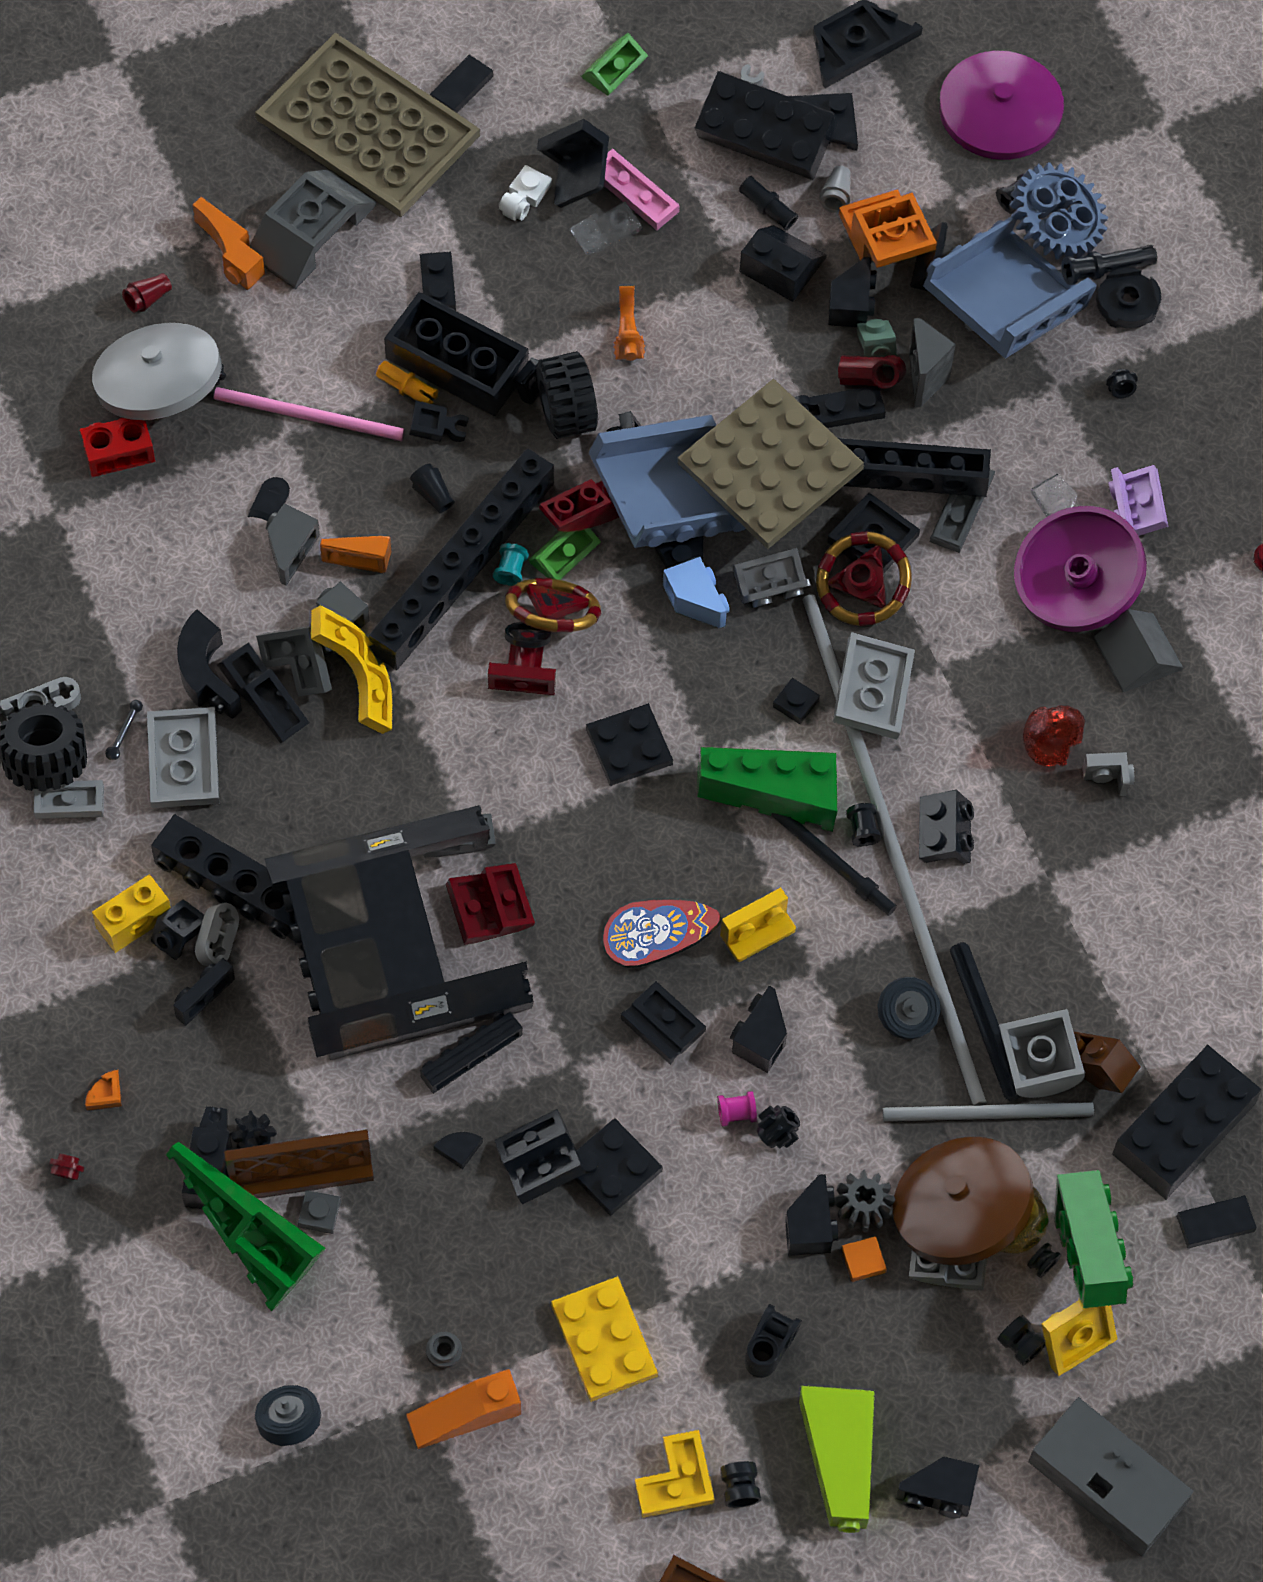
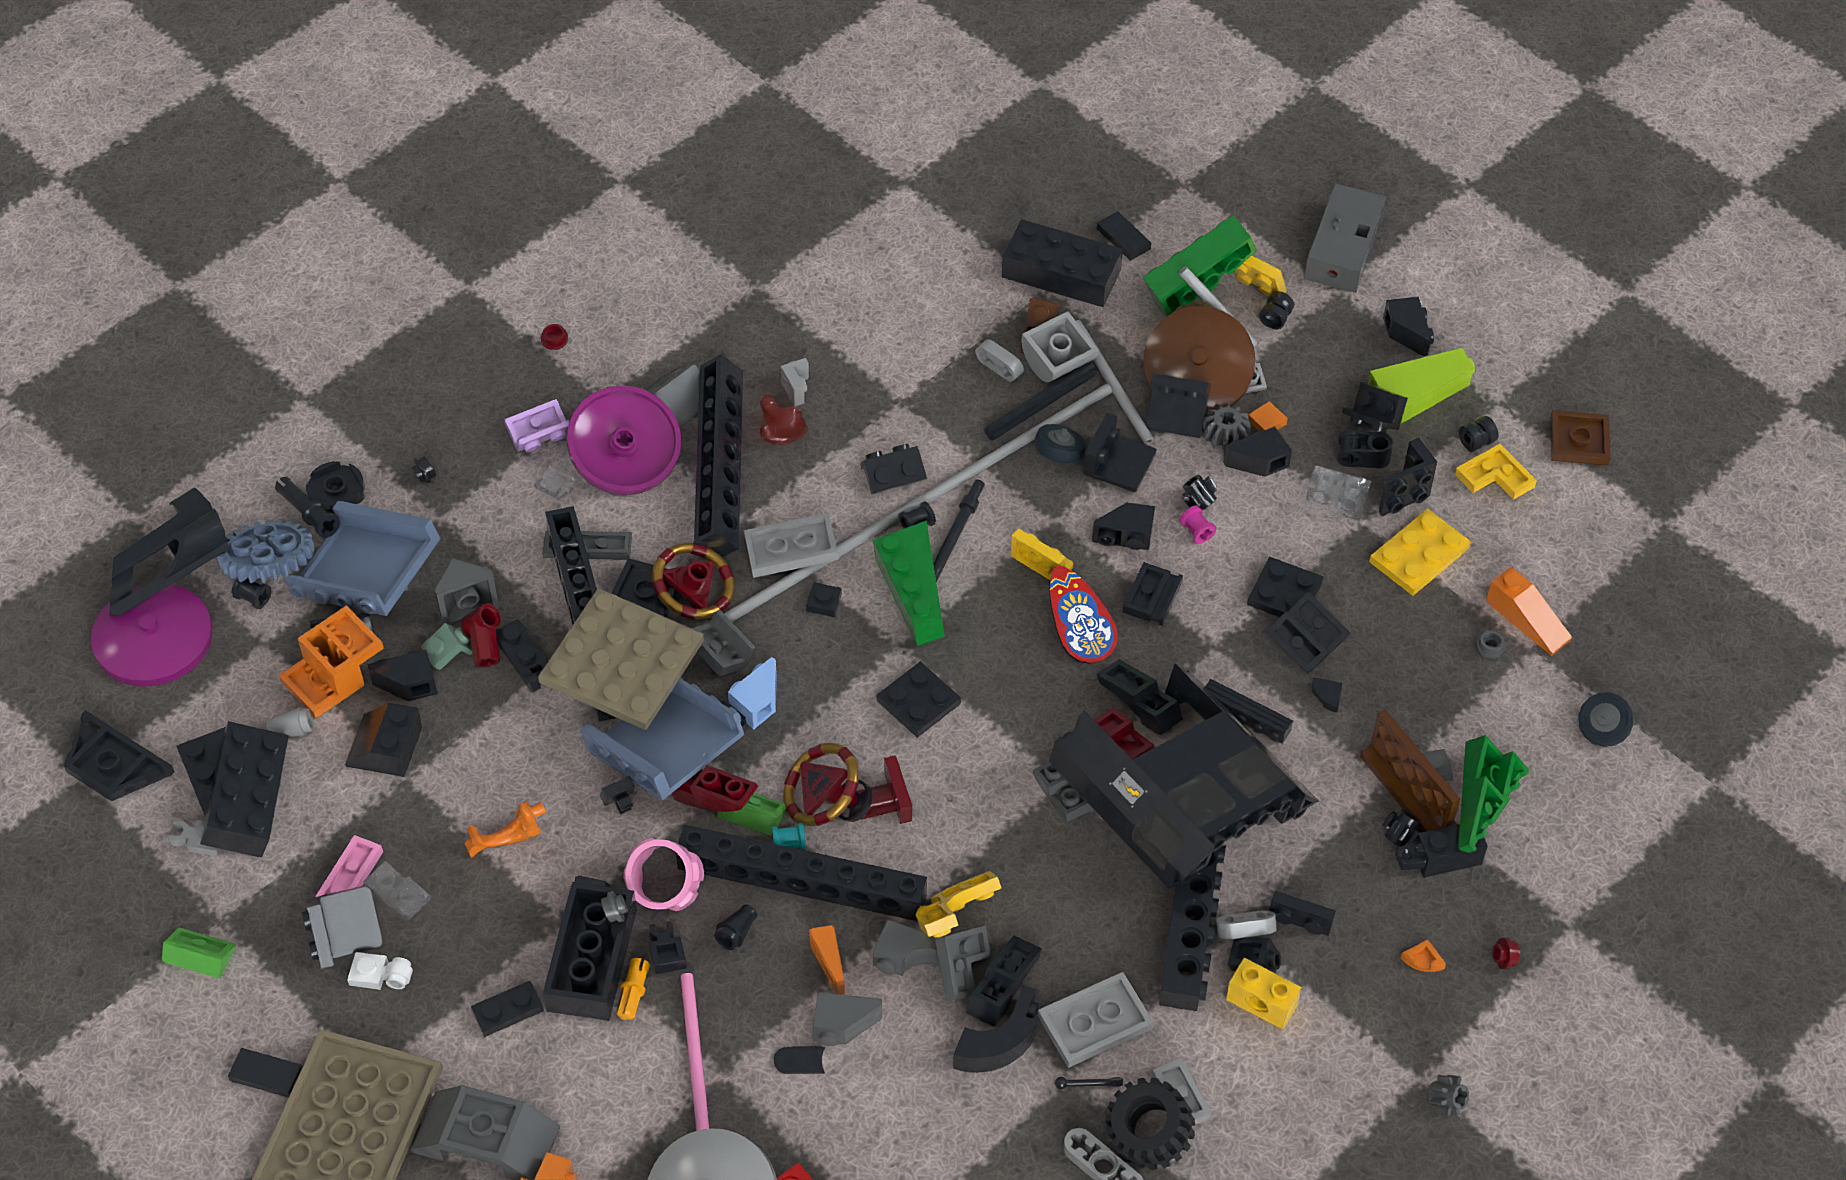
camera: 110 degrees left, 10 degrees down
(475, 365) = (614, 907): none -> dark grey plate
(502, 455) = (634, 876): none -> bright pink piece
(536, 946) = (1142, 696): none -> black slope
(567, 395) = (605, 837): black tyre -> none
(697, 1374) = (1412, 483): none -> black bracket
(714, 1275) = (1337, 493): none -> clear brick
(768, 203) = (324, 771): black pin -> none
(813, 1367) = (1377, 407): none -> black bracket
(867, 1064) = (1117, 457): none -> black bracket
(914, 1151) = (1178, 405): none -> black bracket
(1028, 1246) = (1205, 294): none -> light grey bar
(1040, 648) = (719, 456): none -> black brick
(1061, 995) = (999, 360): none -> light grey beam
(1095, 147) = (191, 535): none -> black panel

